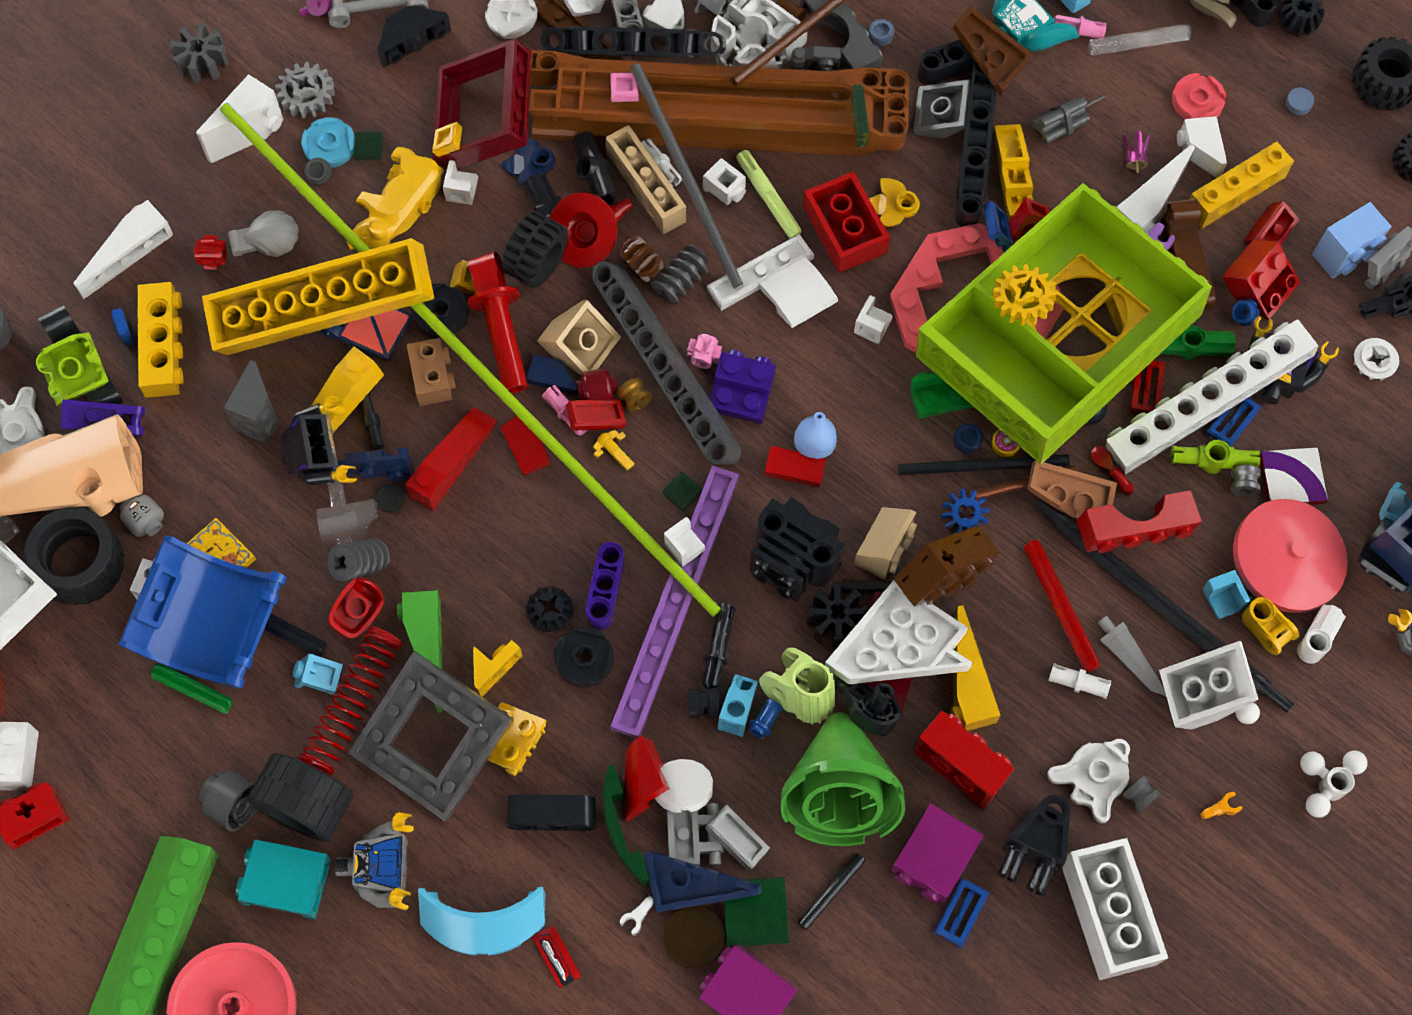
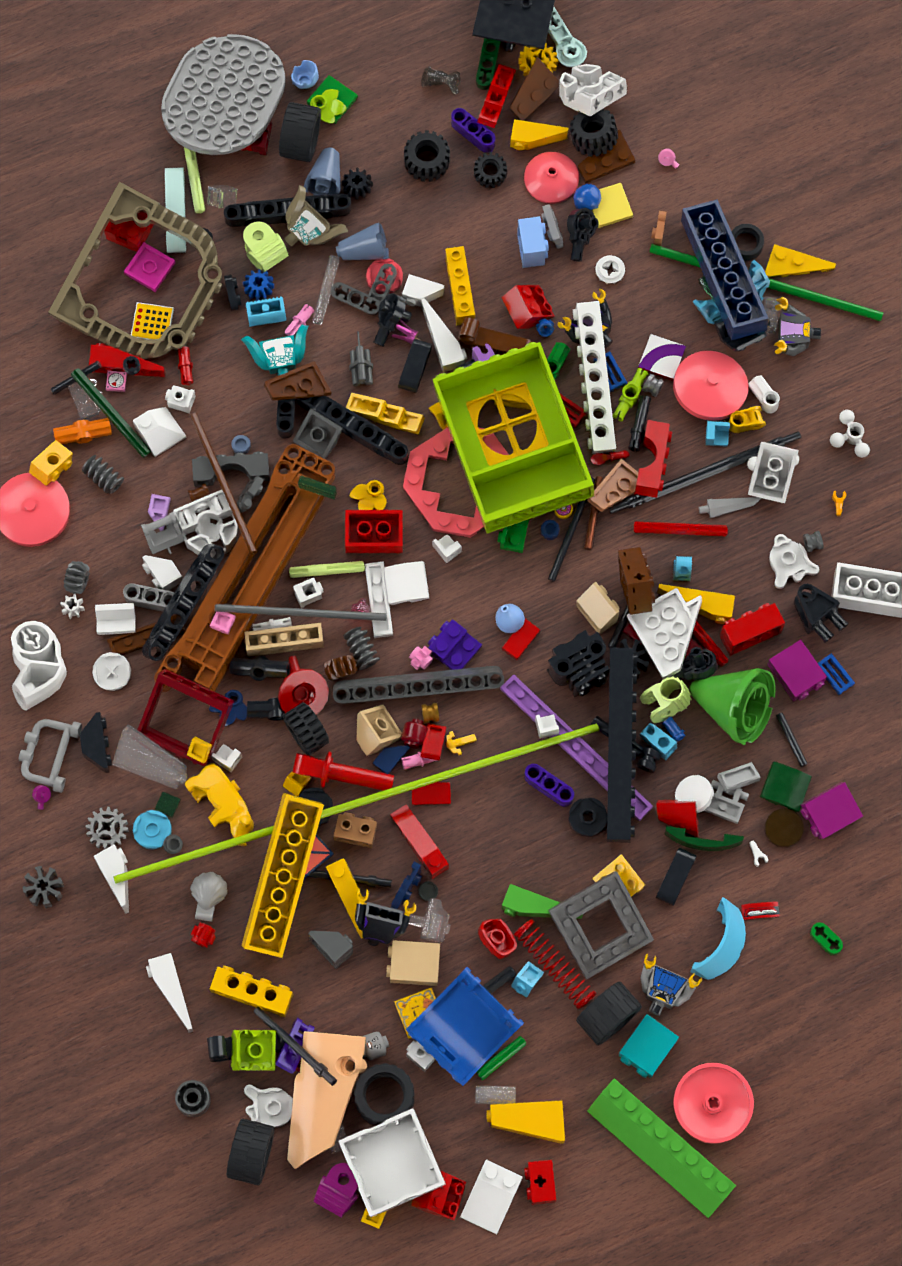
camera: 65 degrees left, 5 degrees up
(65, 447) = (319, 1068): none -> black bar
(115, 763) = (531, 1119): none -> yellow slope
(122, 327) = (231, 1011): blue tile -> none
(134, 701) = (495, 1094): none -> clear axle
(226, 800) = (585, 1059): dark grey piece -> none
(278, 520) = (413, 963): none -> tan brick
(358, 559) = (467, 923): dark grey piece -> none
(412, 93) = (145, 758): none -> clear slope
(489, 672) = (572, 877): yellow slope -> none
(550, 621) = (545, 833): black gear -> none
(682, 491) = (506, 713): clear green tile -> none
(684, 884) = (755, 816): dark blue wing -> none
(701, 650) = (620, 746): none -> black brick
(736, 252) = (360, 606): none -> clear pink tile
(915, 712) = (709, 644): none -> red axle
(965, 503) = (603, 548): blue gear -> none
(997, 226) = (422, 442): blue tile -> none
(1003, 628) = (682, 568): none -> medium azure leg
(1028, 213) = (429, 421): red brick -> none
(1033, 303) = (501, 445): yellow gear -> none
(1080, 680) = (731, 541): white pin -> none
(1107, 178) = (415, 365): none -> black beam
(1148, 115) = (390, 312): none -> black pin
(1161, 92) = (372, 296): none -> dark grey beam
(1196, 484) = (639, 423): none -> black pin
(1226, 54) = (364, 245): none -> sand blue cone
(1274, 224) = (494, 281): red slope -> none
(1299, 101) = (416, 217): sand blue tile -> none

